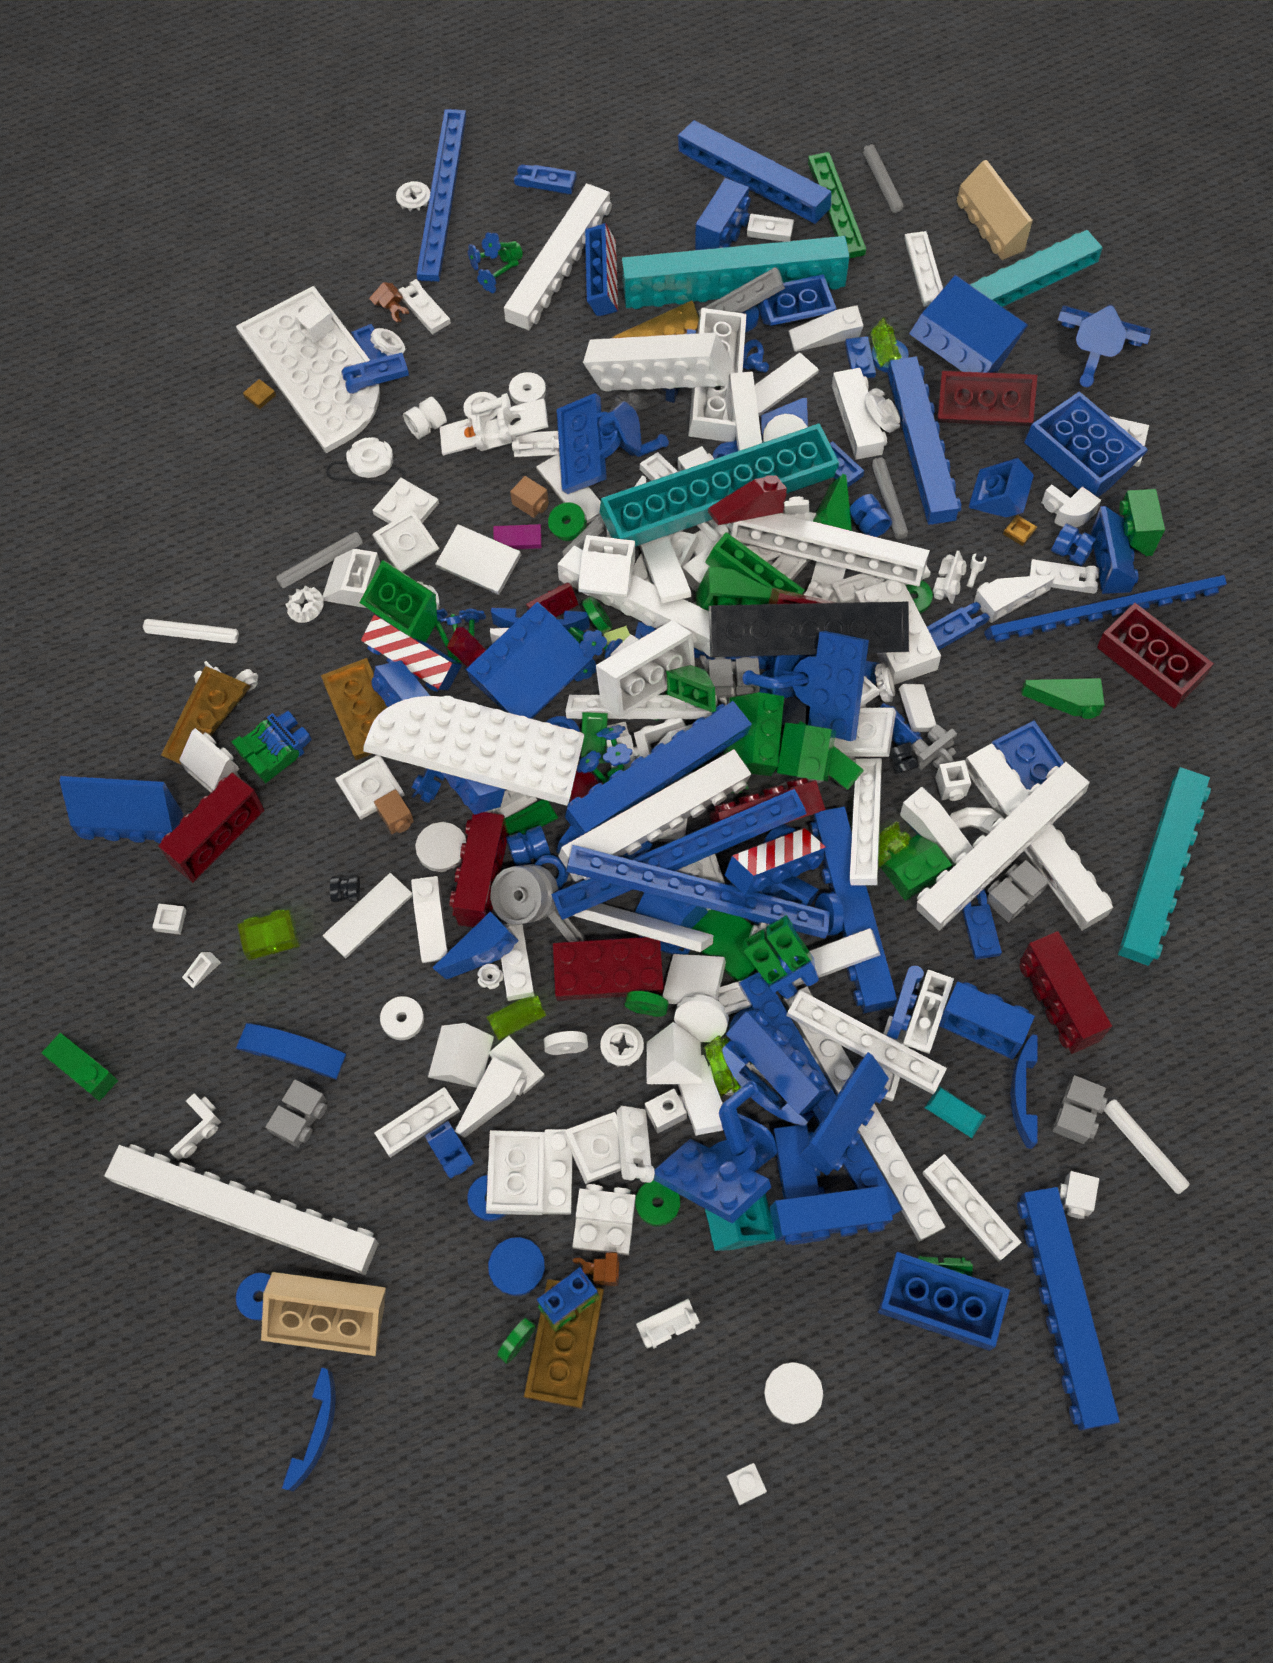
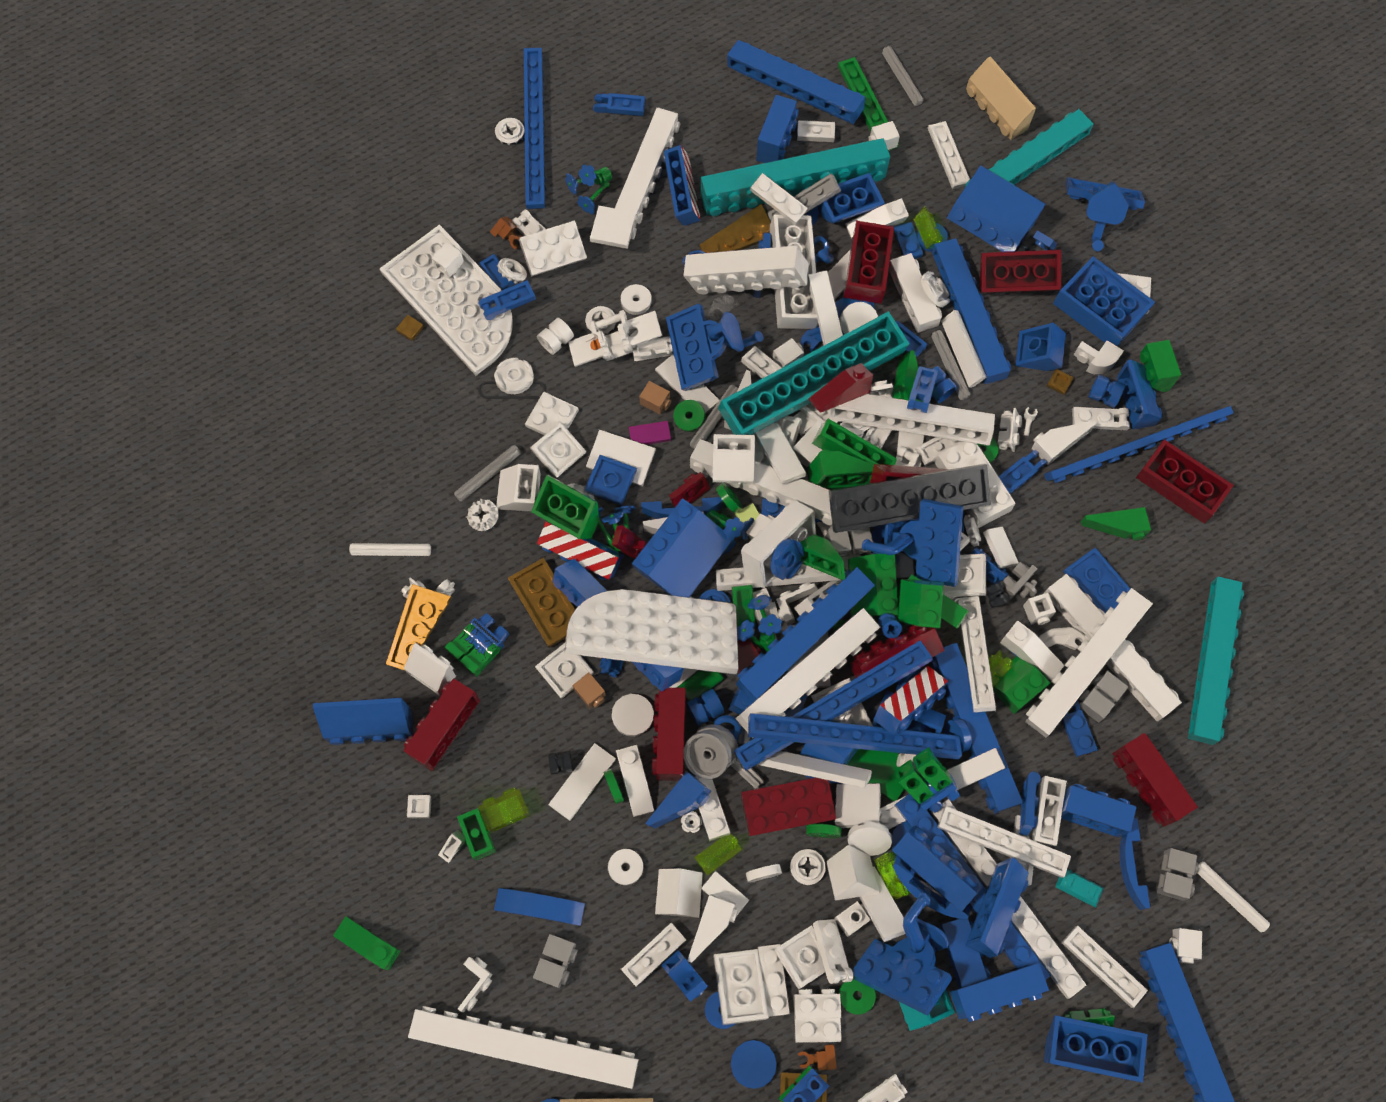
camera: 10 degrees left, 5 degrees up
(229, 957) = (476, 834): none -> green brick
(402, 921) = (611, 781): none -> green piece
(438, 322) = (552, 248): none -> white brick
(461, 580) = (610, 480): none -> blue tile
(511, 305) = (613, 227): none -> white tile
(651, 684) = (786, 559): none -> blue tile
(709, 290) = (778, 199): none -> white plate
(759, 780) = (893, 630): none -> blue bush
(806, 371) = (868, 262): none -> dark red brick
(846, 514) = (922, 389): none -> blue plate
(854, 235) = (888, 132): none -> white brick
(907, 481) = (963, 348): none -> white tile
(1020, 365) = (1044, 241): none -> blue plate

